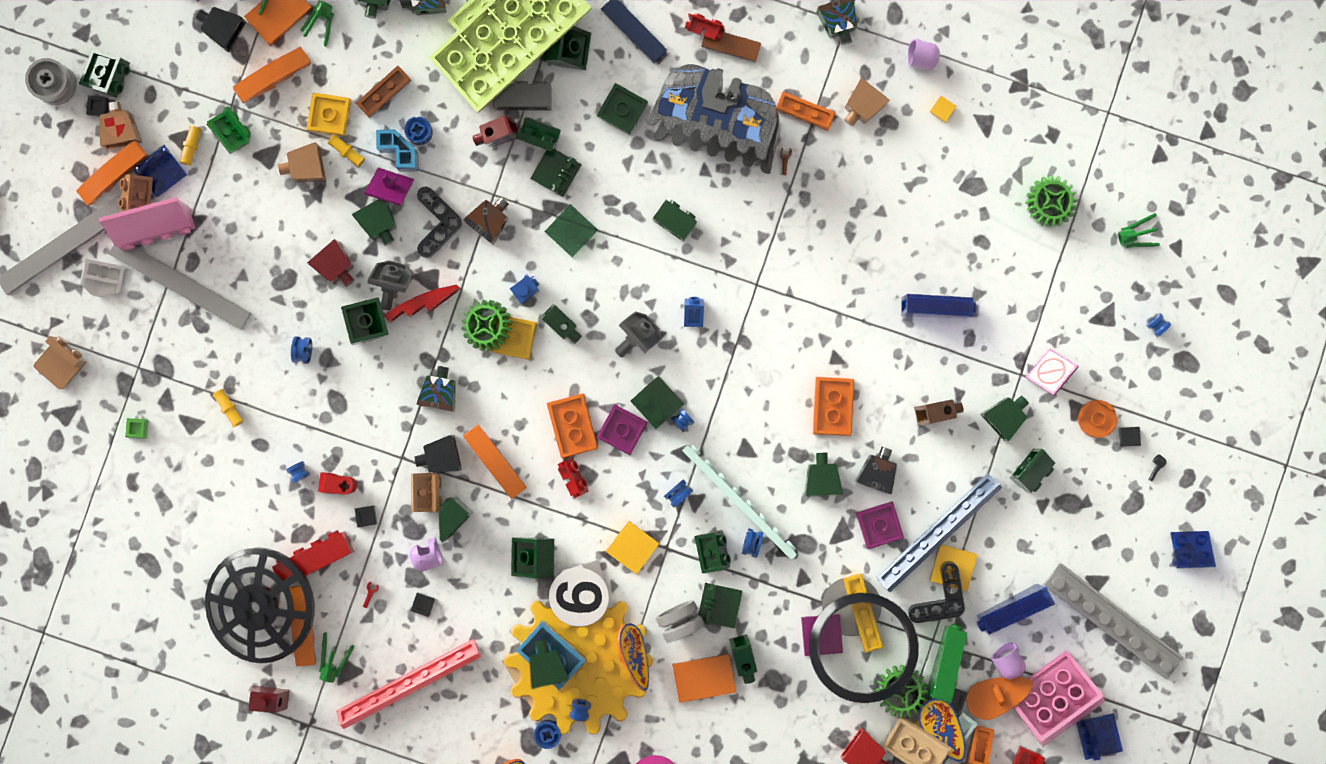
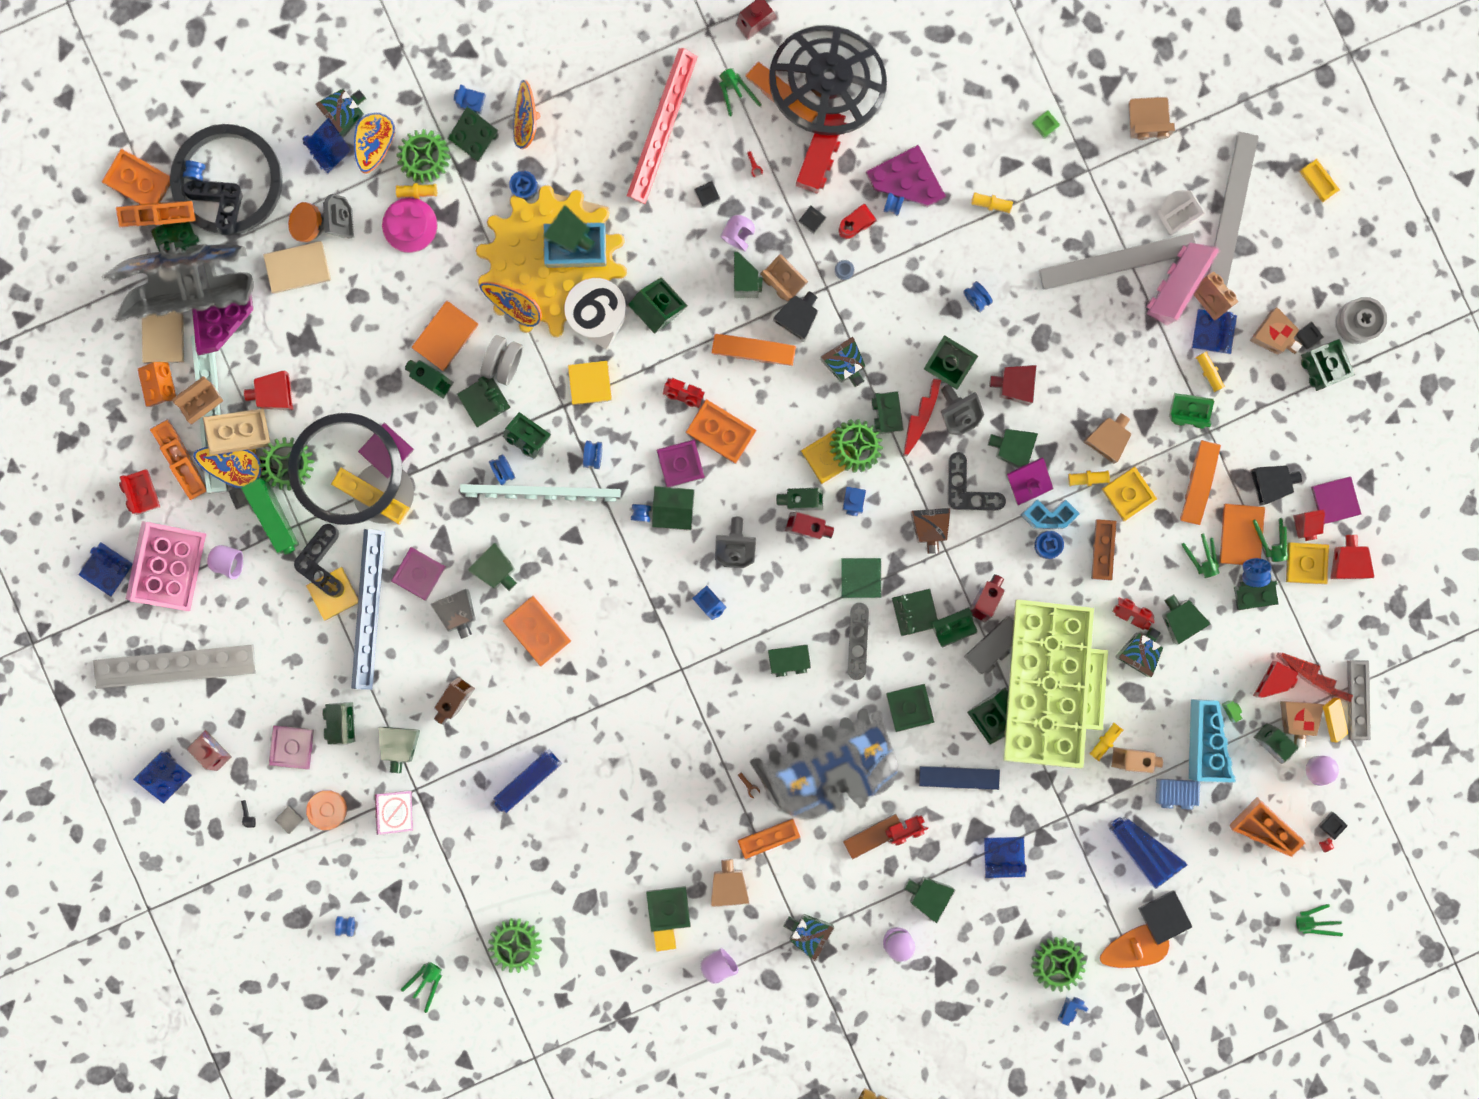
camera: 140 degrees right, 0 degrees up
(111, 172) = (1248, 295): orange slope -> none
(269, 482) = (908, 177): none -> magenta plate
(377, 458) = (844, 269): none -> sand blue plate
(402, 21) = (1127, 608): none -> red hinge
(442, 328) = (888, 412): none -> dark green bracket
(577, 304) = (801, 525): none -> dark red torso
(580, 710) = (515, 225): blue wheel -> none
(612, 186) = (861, 641): none -> dark grey beam
(920, 127) = (668, 909): none -> dark green plate
(996, 696) = (211, 526): orange shield -> none
(1015, 609) = (257, 605): clear blue slope -> none
(1082, 486) = (291, 747): none -> tile
(1144, 537) = (208, 751): none -> torso

